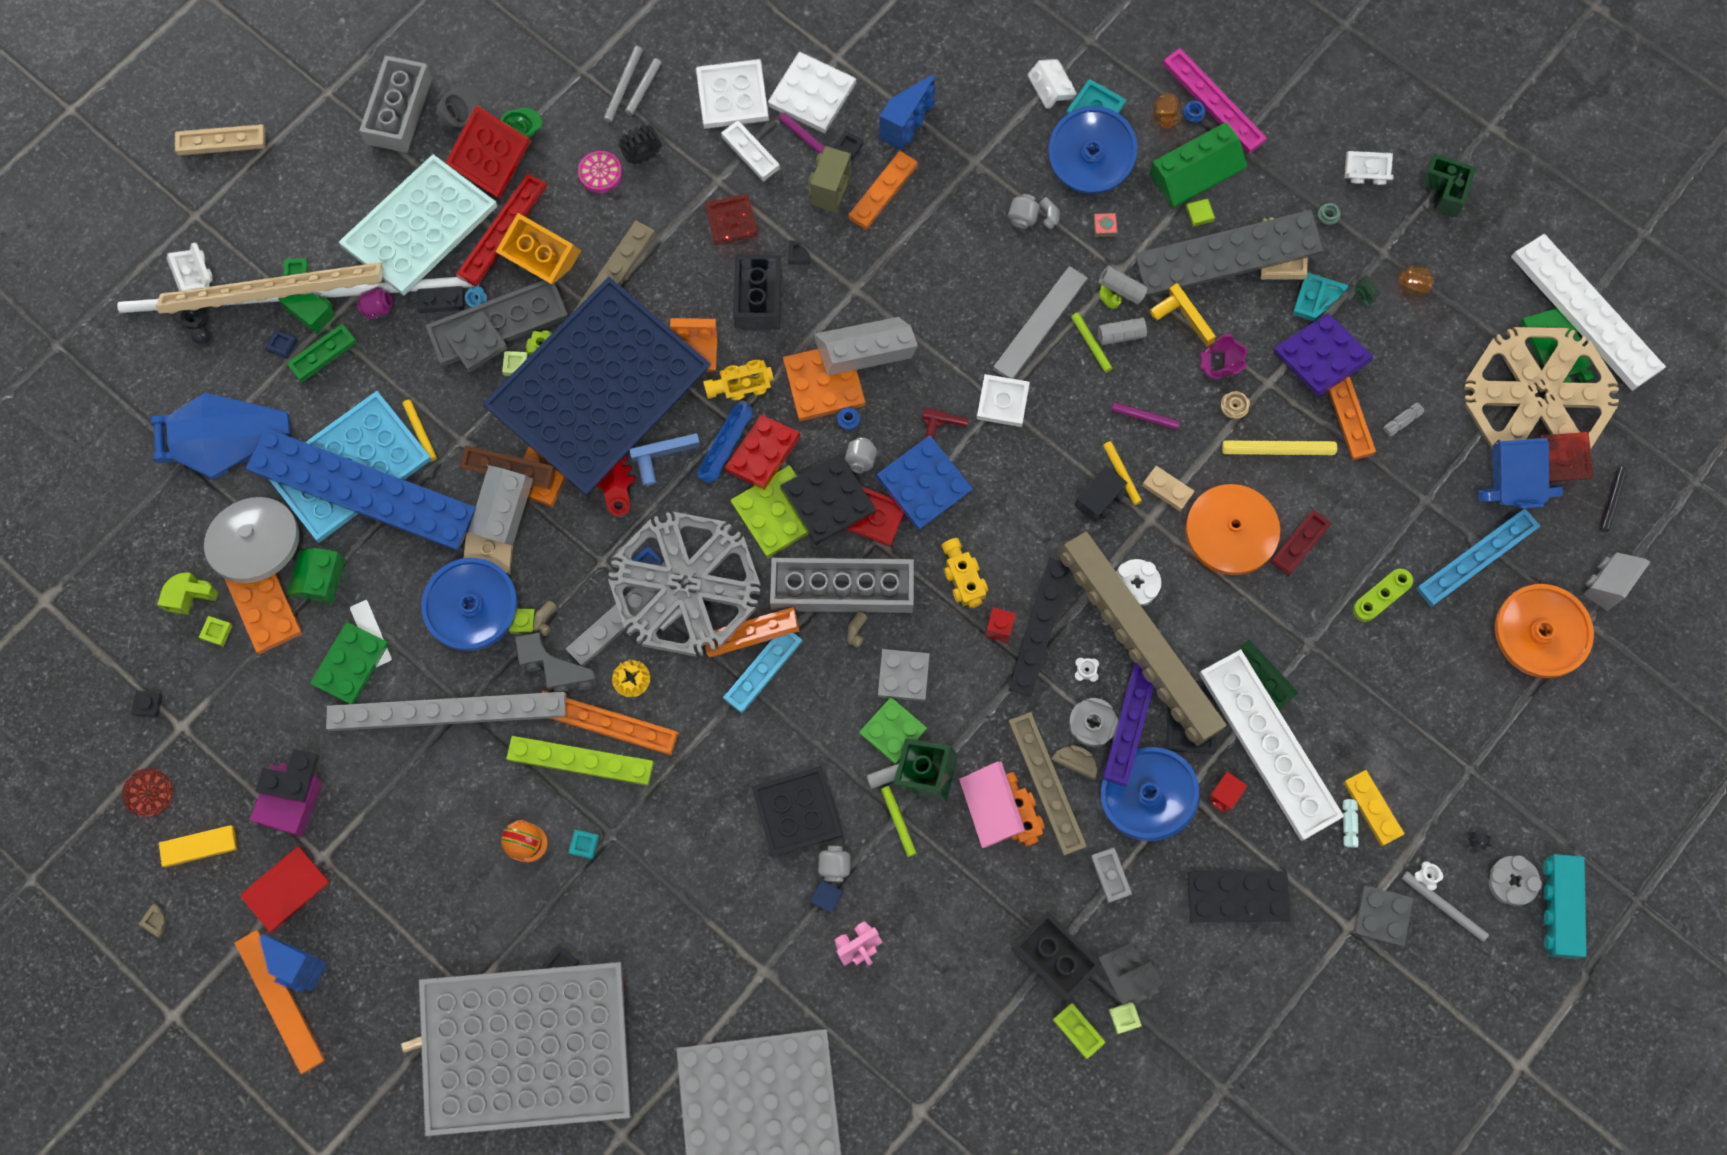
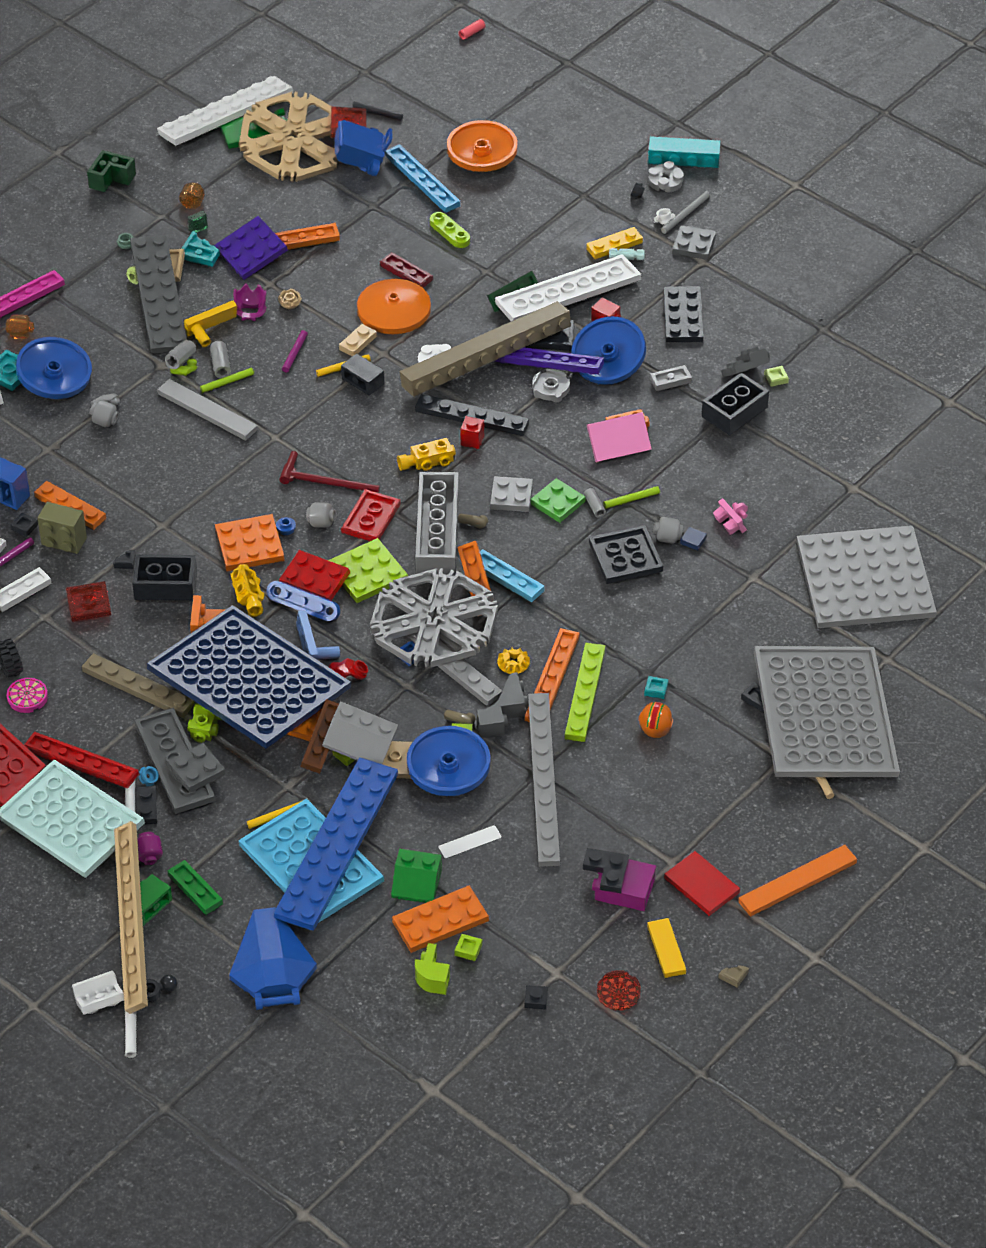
camera: 90 degrees left, 25 degrees down
(251, 540) = (381, 923): light grey dish -> none
(281, 344) = (181, 923): dark blue tile -> none
(290, 965) = (769, 851): blue slope -> none
(296, 266) = (106, 912): green plate -> none
(349, 663) = (498, 851): green plate -> none
(512, 361) = (218, 744): yellowish green plate -> none
(538, 249) = (107, 725): light orange slope -> none
(827, 499) = (360, 532): black plate -> none
(866, 345) = (221, 506): light grey slope -> none
(924, 482) = (348, 476): blue plate -> none
(926, 769) = (591, 471): dark green slope -> none
(1003, 400) = (276, 430): white plate -> none
(1047, 784) = (599, 411): dark tan plate -> none
(1077, 760) = (580, 396): dark tan tile -> none
(1079, 1031) = (788, 397): lime plate -> none
(1091, 664) = (507, 388): white plate -> none
(1105, 225) = (120, 369): tile -> none
(1197, 107) = (21, 310): blue plate -> none
(1199, 165) = (72, 311): green slope -> none
(1200, 212) = (115, 314): lime tile -> none
(1280, 447) = (327, 278): light yellow axle -> none
(1368, 166) = (88, 216): white bracket -> none
(1403, 419) = (308, 211): light grey axle -> none
(1615, 579) = (444, 107): light grey slope -> none

